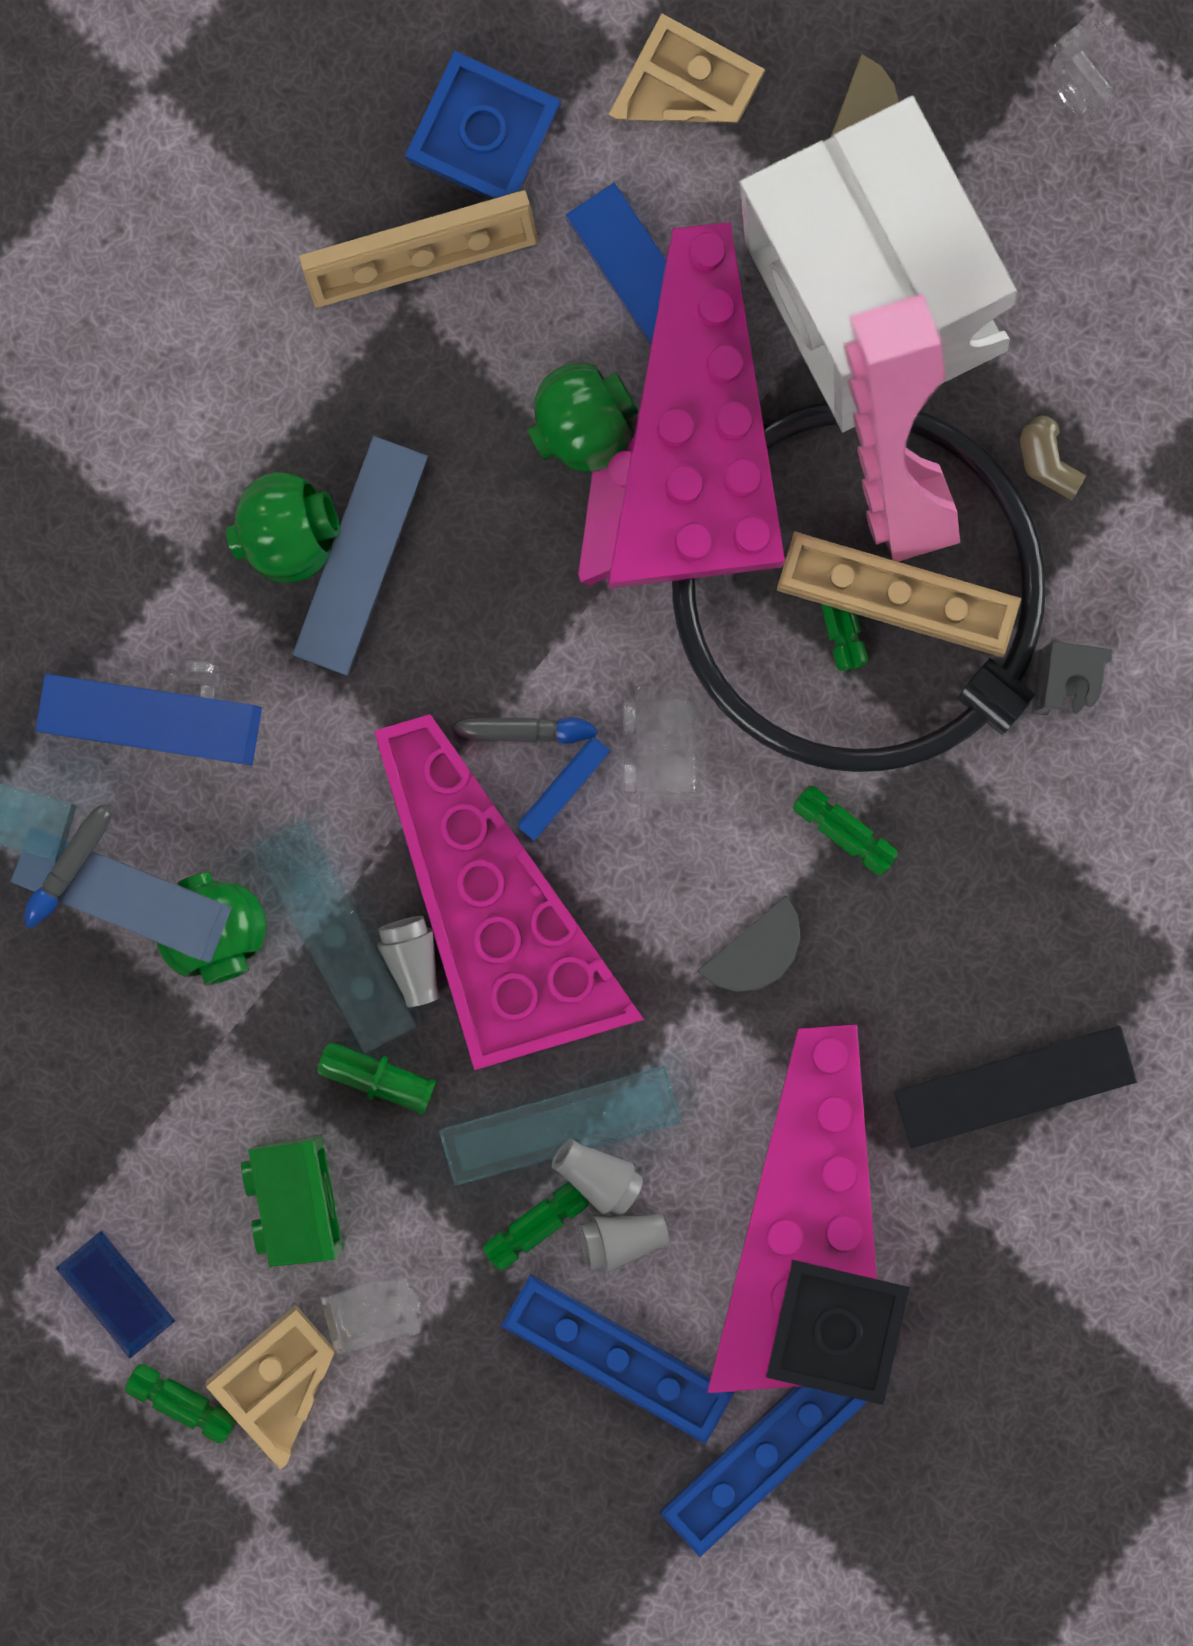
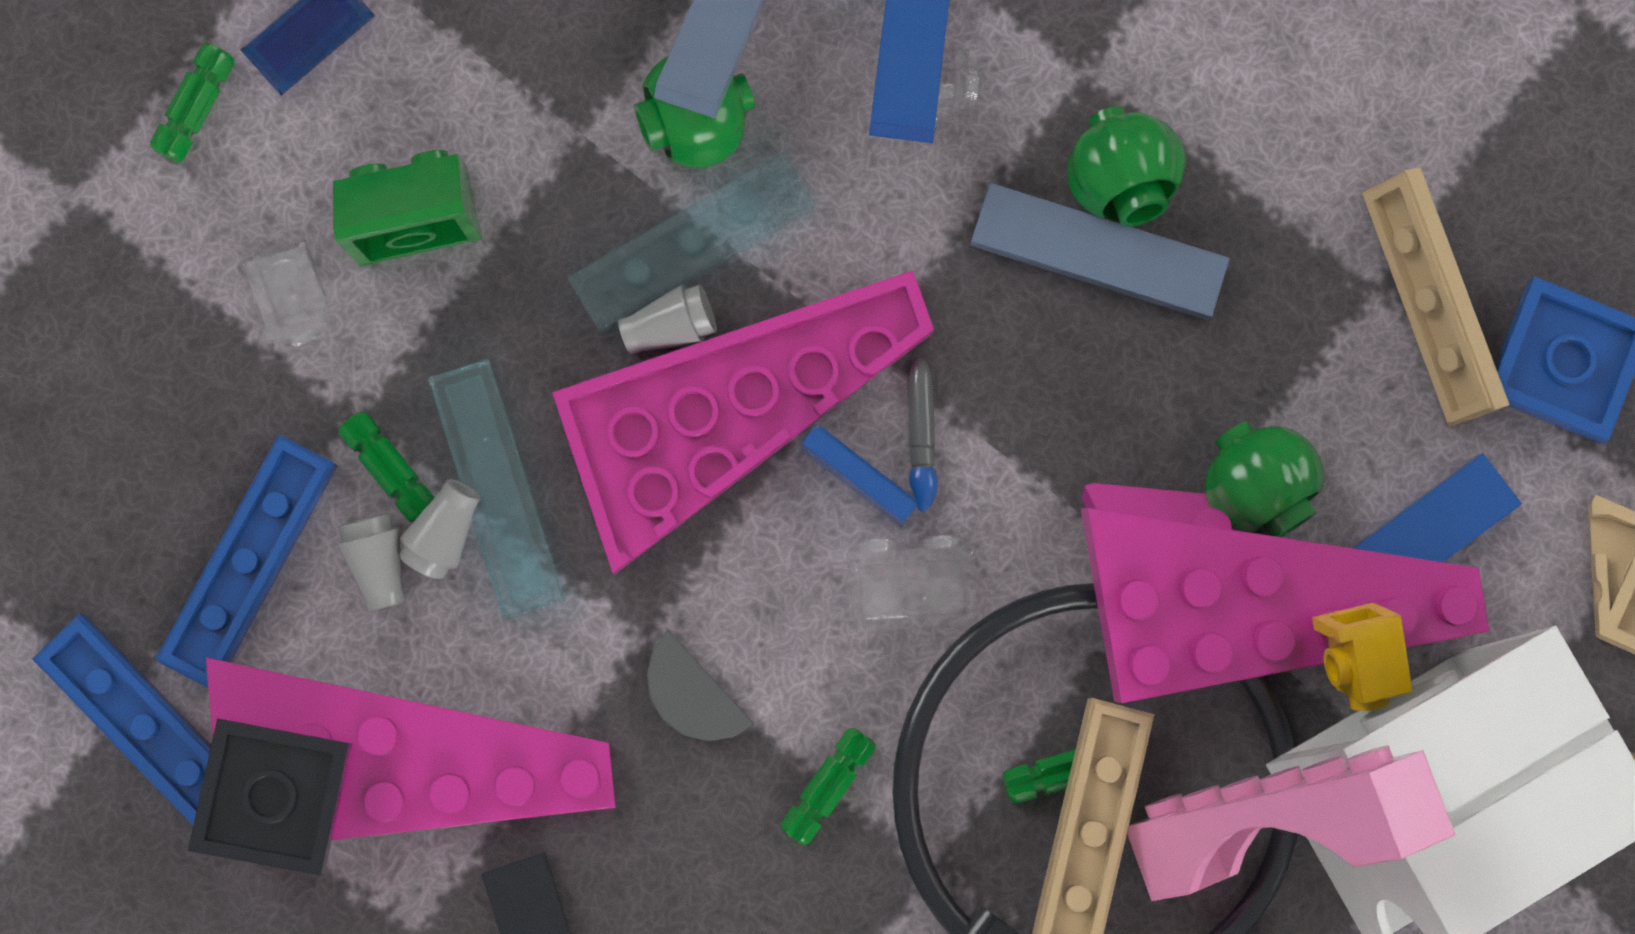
camera: 85 degrees right, 5 degrees down
(275, 1382) = (214, 197): tan wing -> none
(376, 1077) = (542, 291): green axle -> none
(751, 341) = (1365, 655): none -> yellow brick

